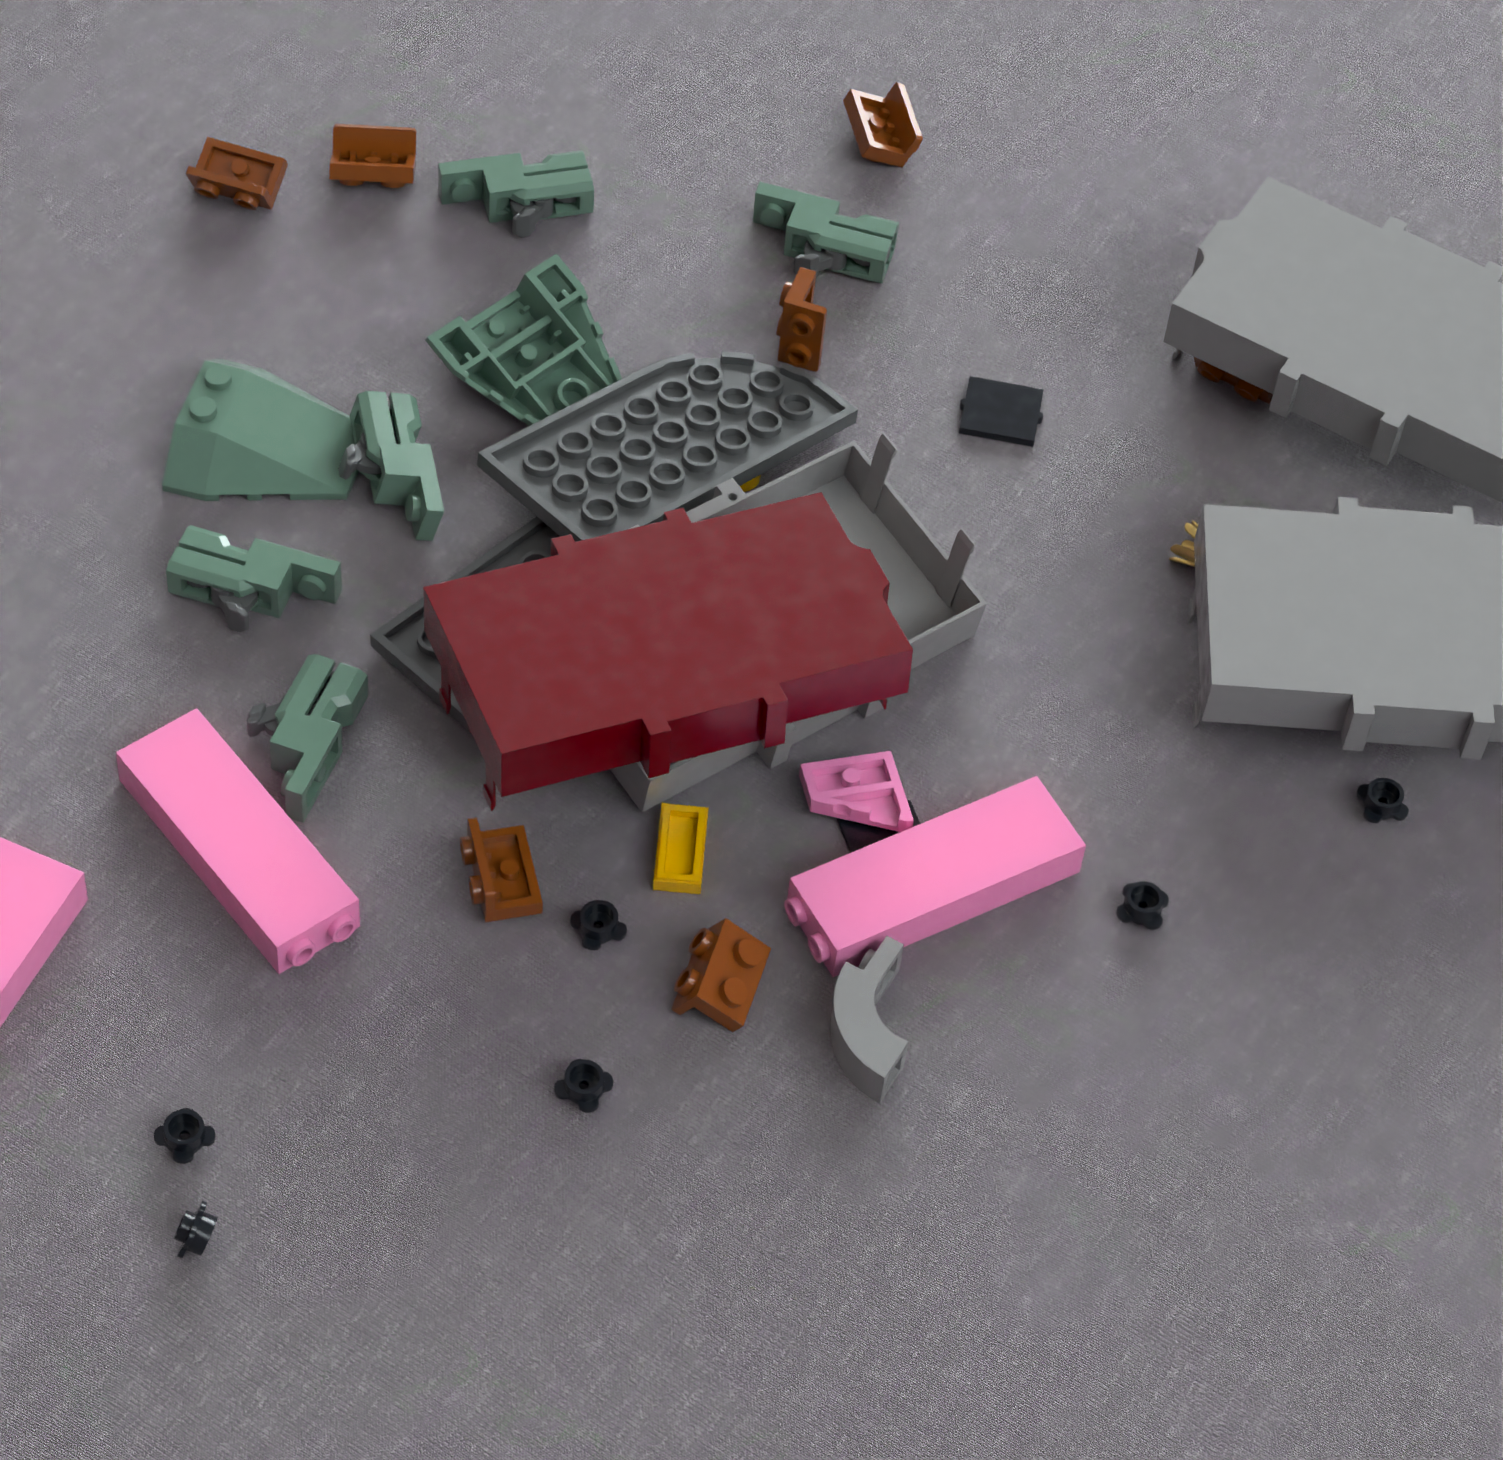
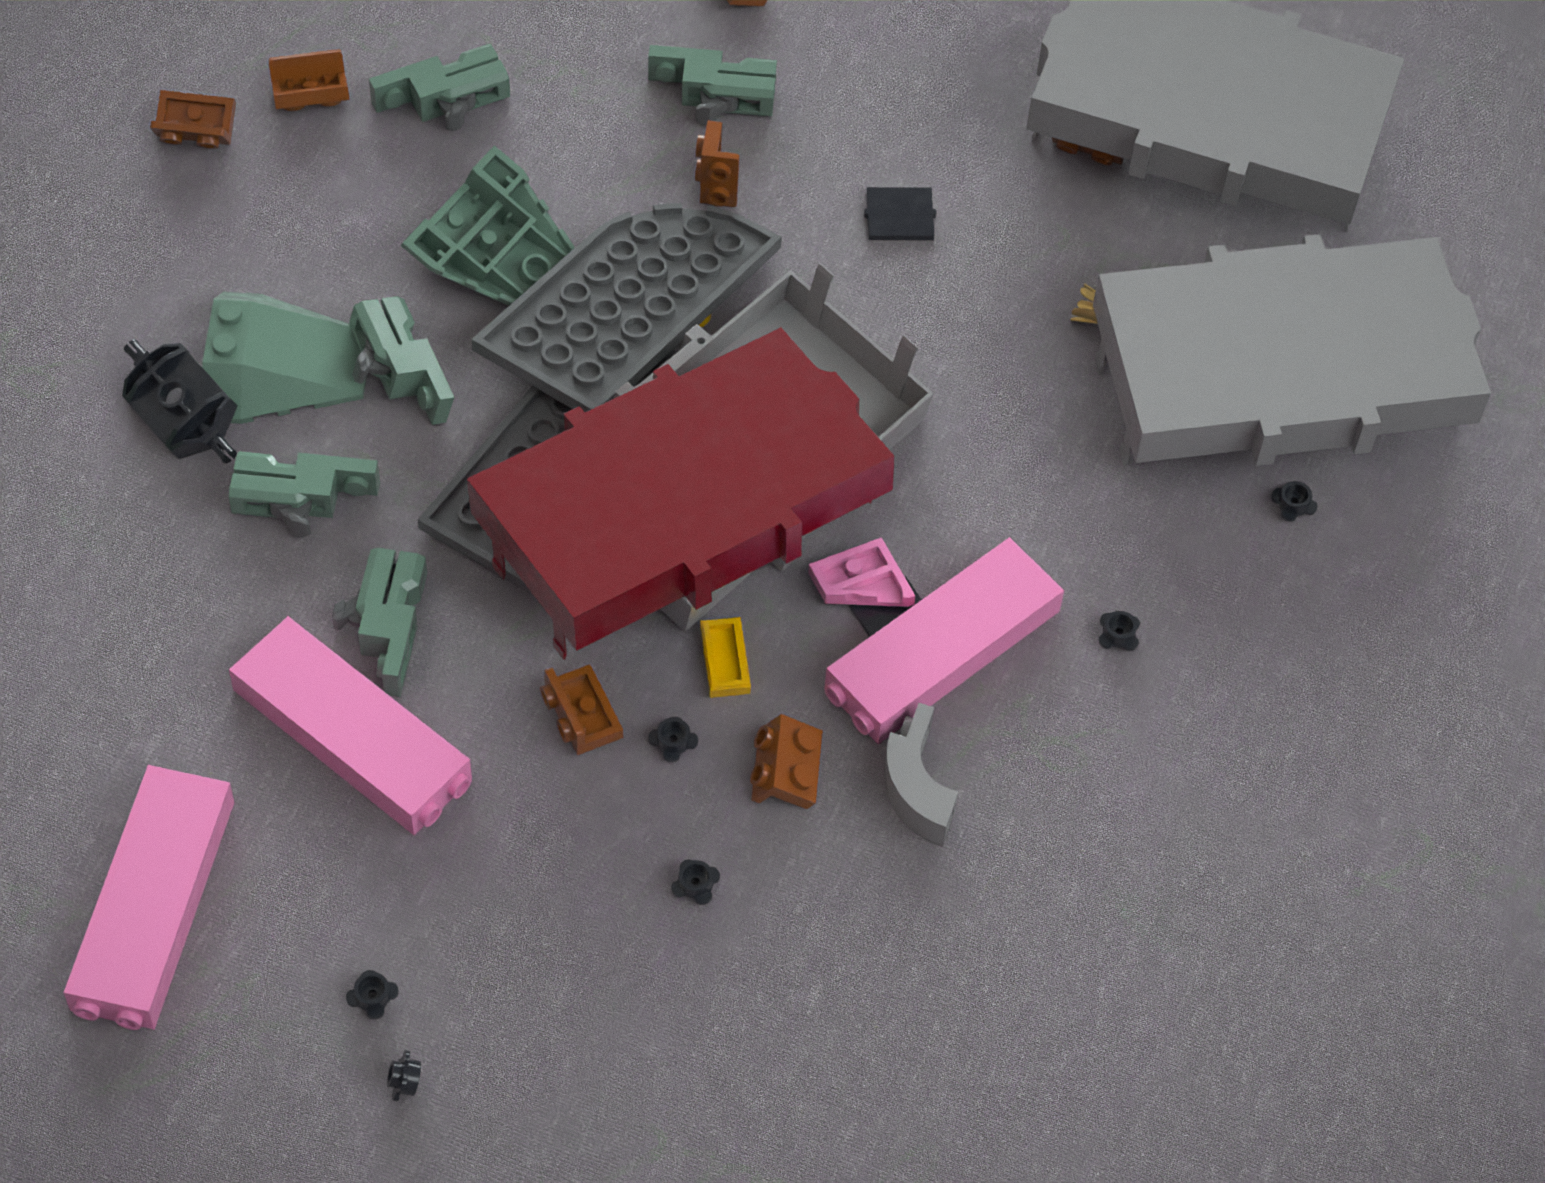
camera: 10 degrees left, 5 degrees up
(154, 483) = (197, 418): none -> black plate

